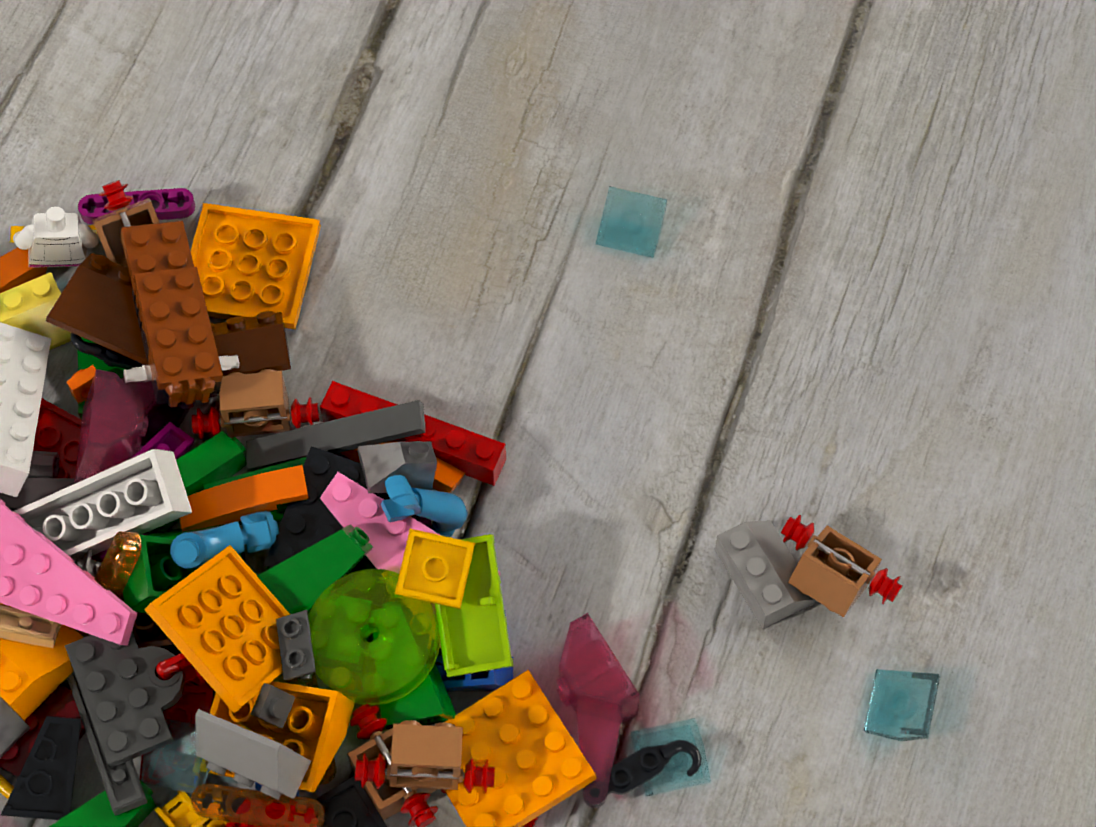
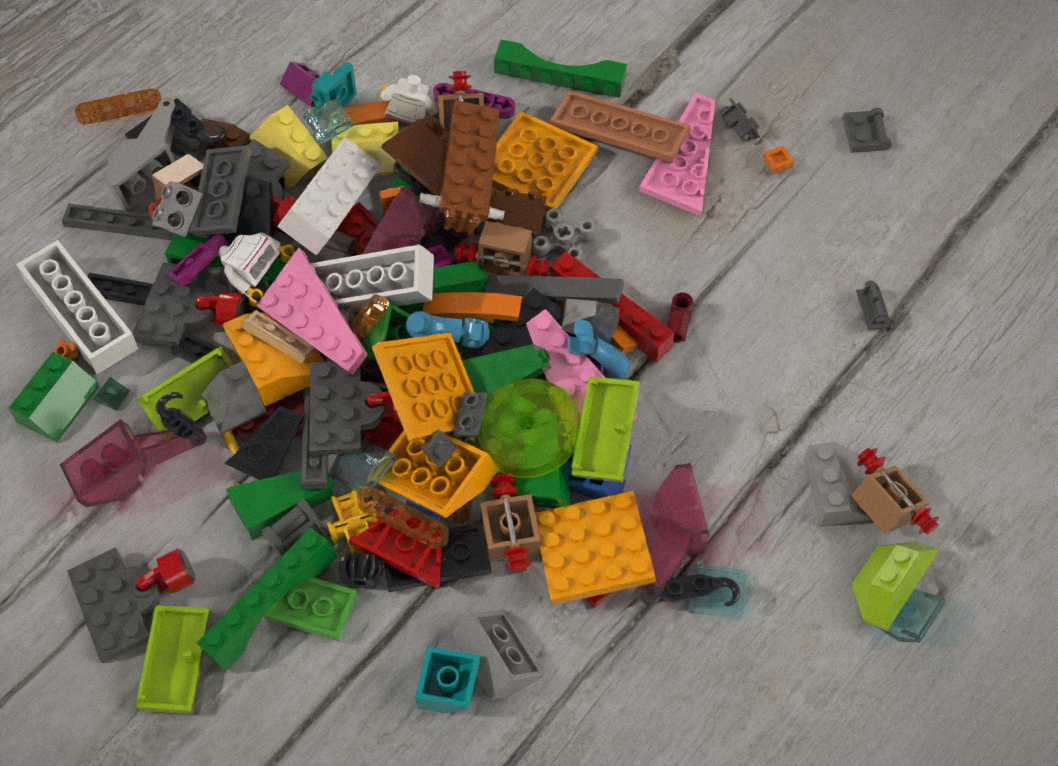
camera: 20 degrees right, 5 degrees down
(249, 756) = (408, 475): light grey slope -> none
(290, 123) = (601, 77): none -> green arch
(317, 351) = (563, 236): none -> light grey gear
(338, 183) = (620, 126): none -> nougat plate
(425, 759) = (533, 521): medium nougat brick -> none
(434, 212) = (685, 178): none -> bright pink wing
(435, 568) = (589, 392): yellow tile -> none
(495, 133) = (746, 127): none -> dark grey hinge
(503, 420) = (680, 317): none -> dark red piece
(550, 165) = (778, 159): none -> orange plate
(631, 222) = (824, 215): clear light blue slope -> none
(637, 95) = (859, 131): none -> dark grey plate
(731, 324) = (873, 306): none -> dark grey hinge
(866, 670) = (890, 579): none -> lime wedge

